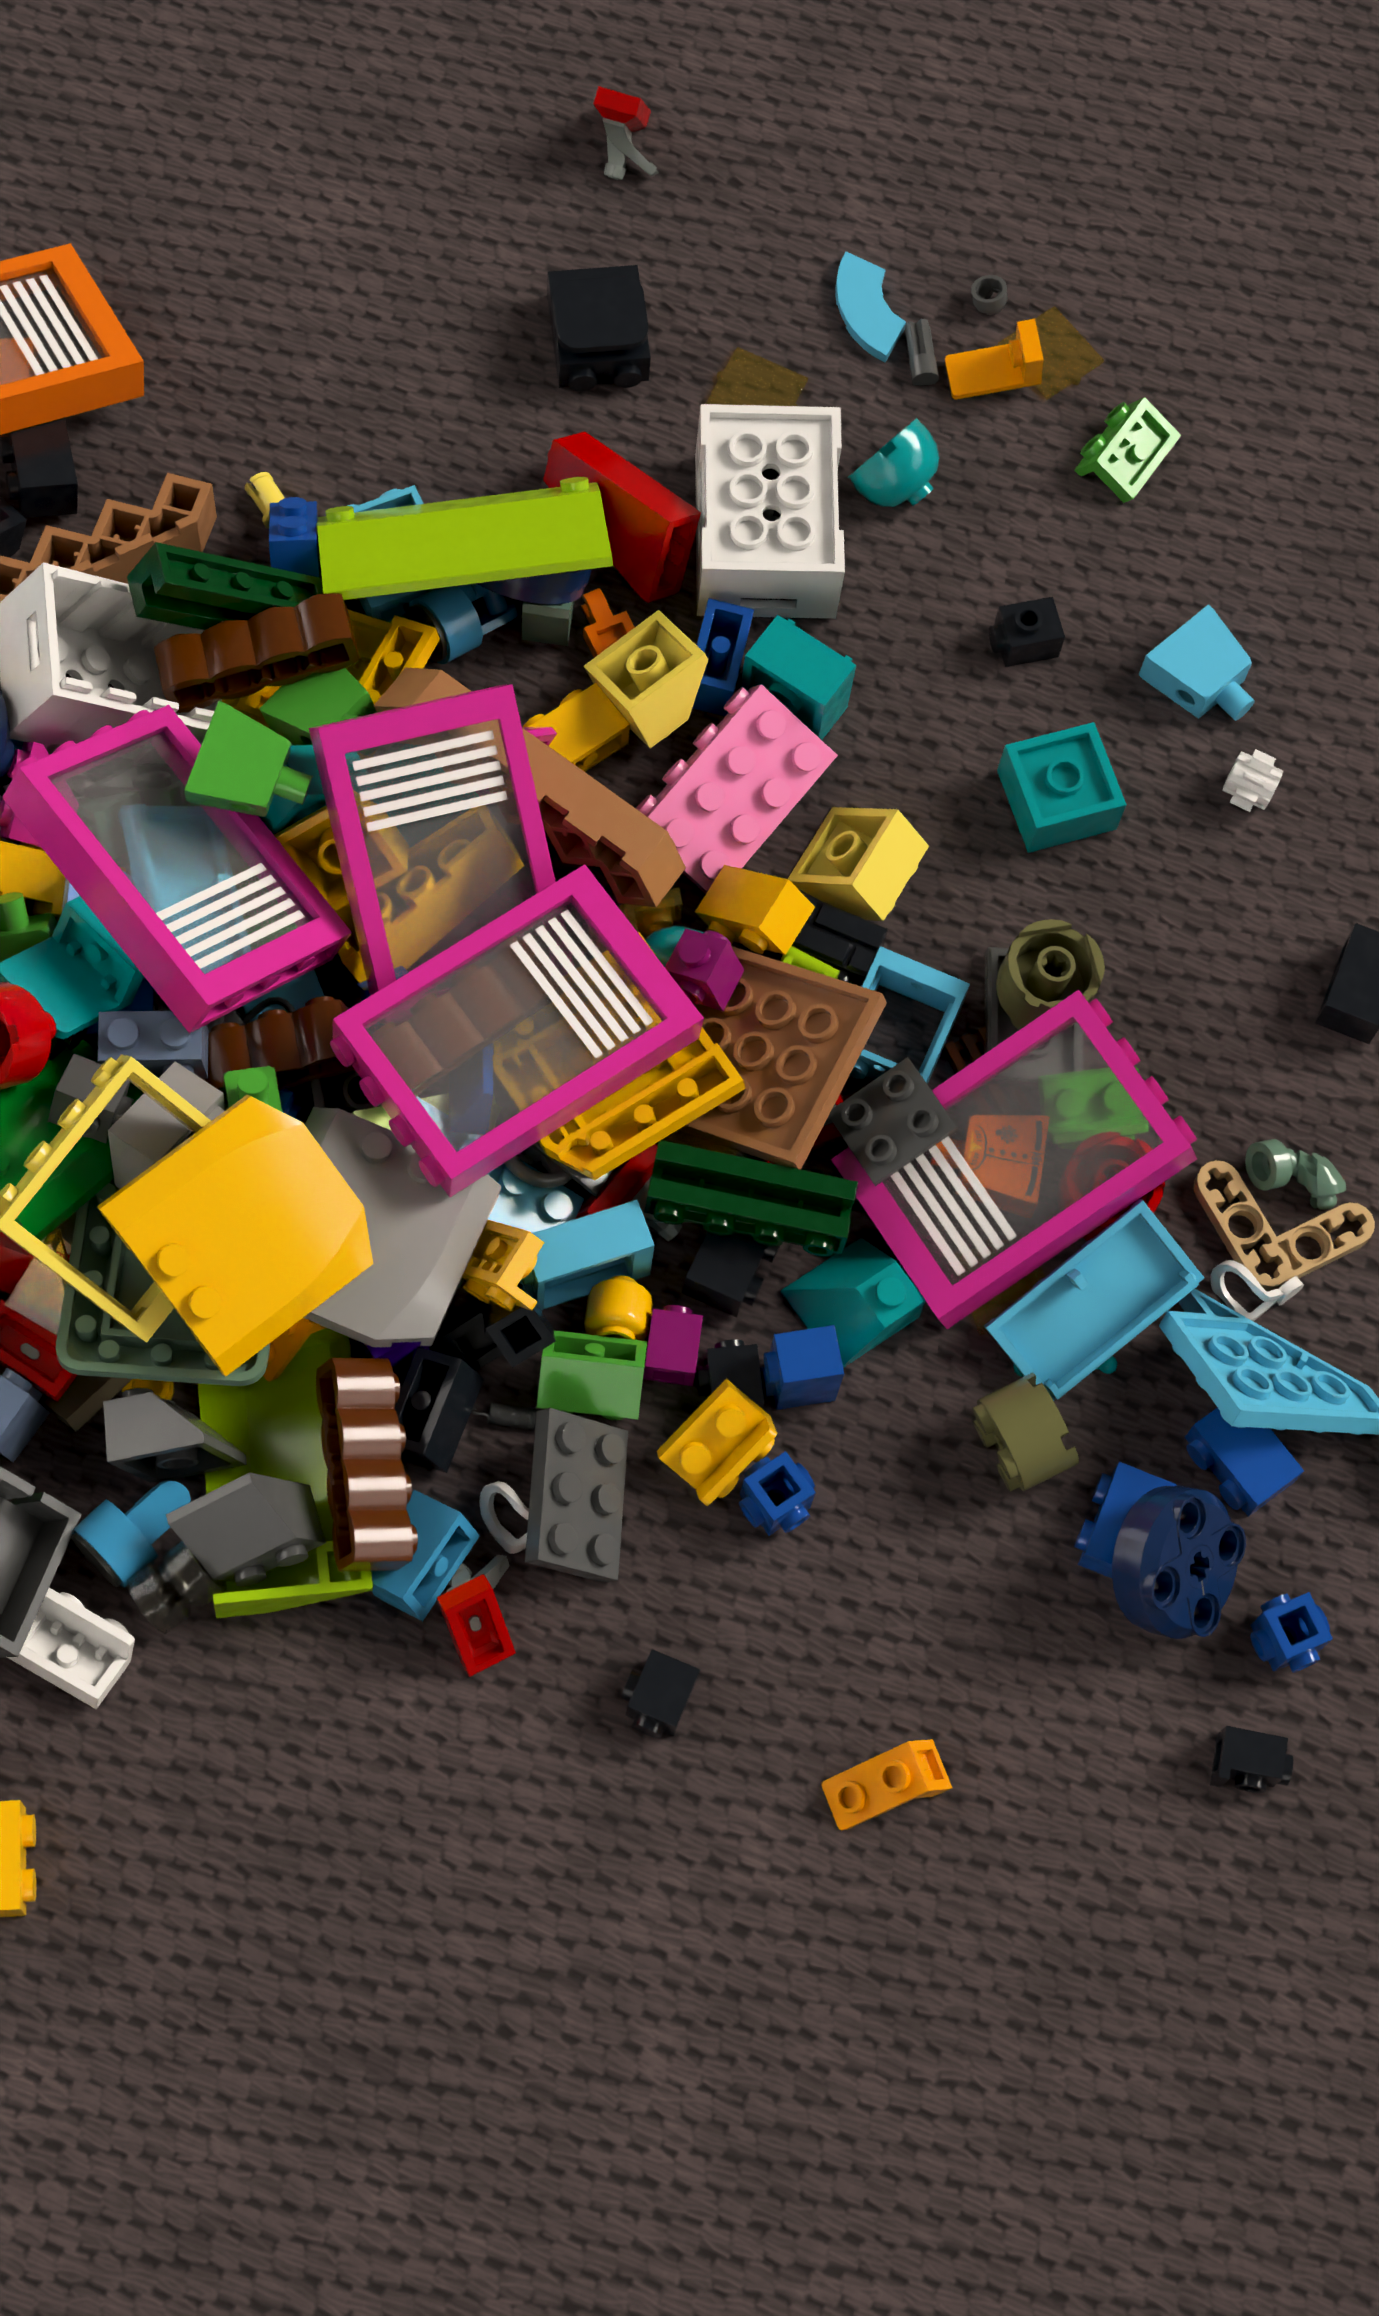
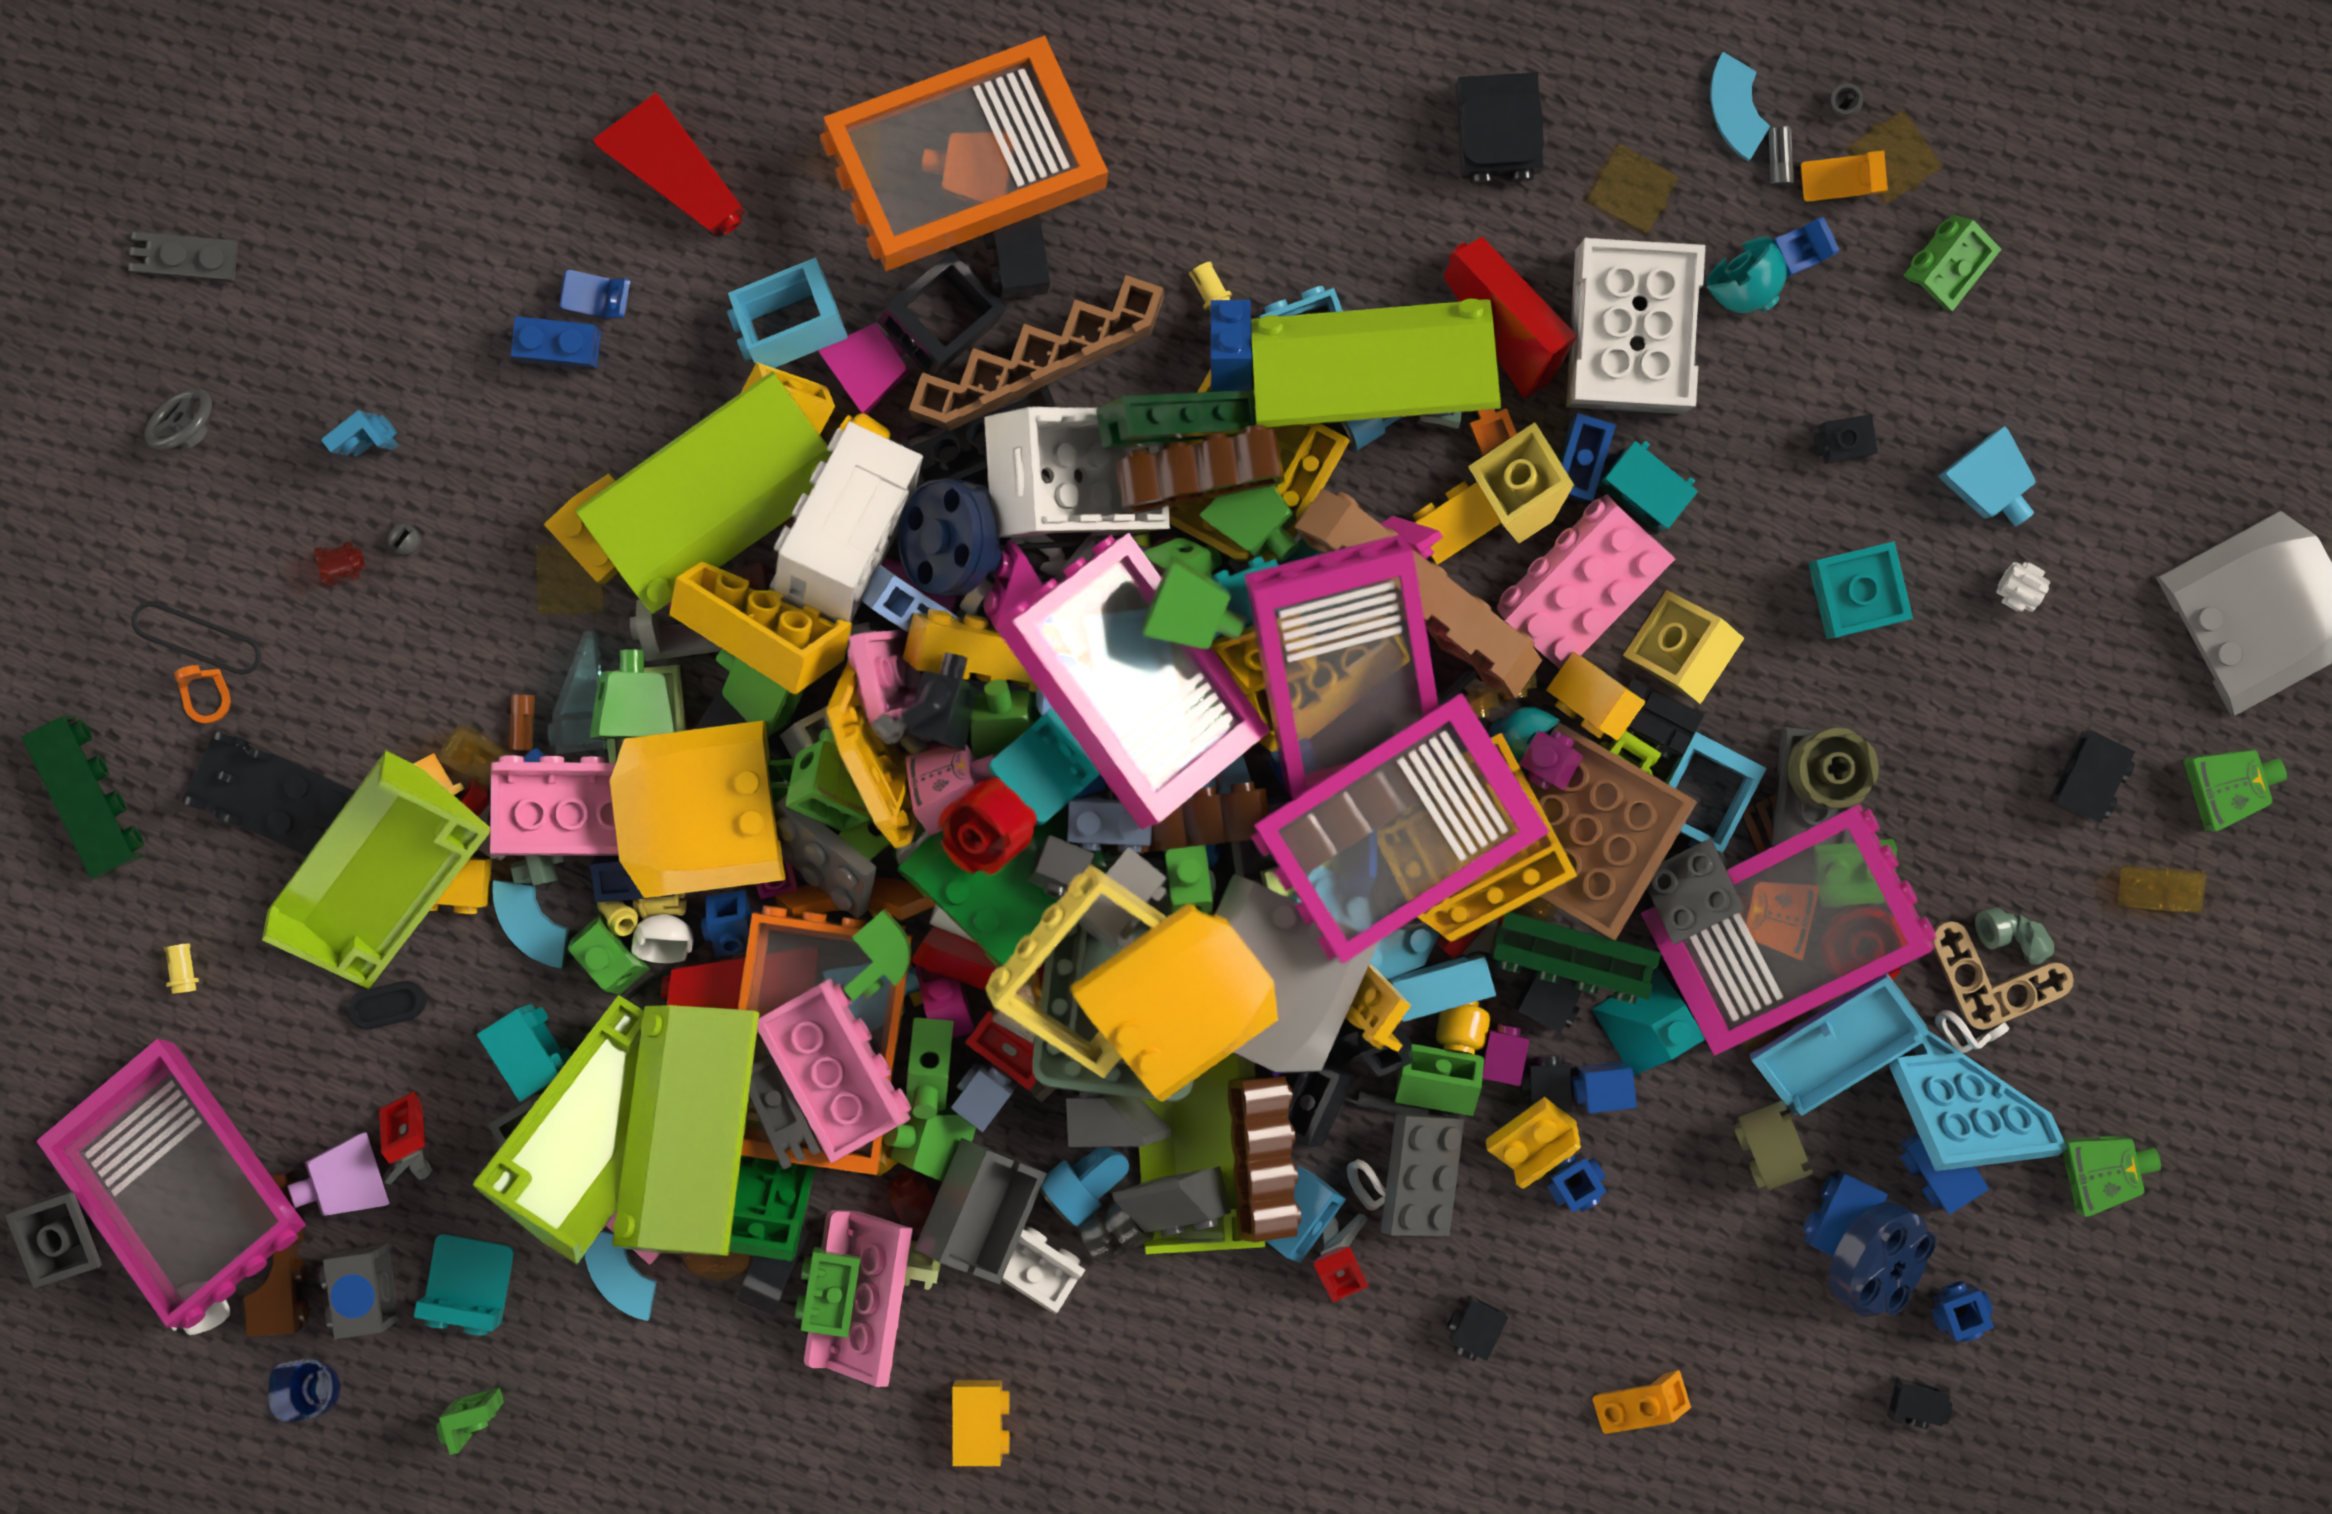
camera: 15 degrees right, 20 degrees up
(963, 437) = (1807, 246): none -> blue bracket

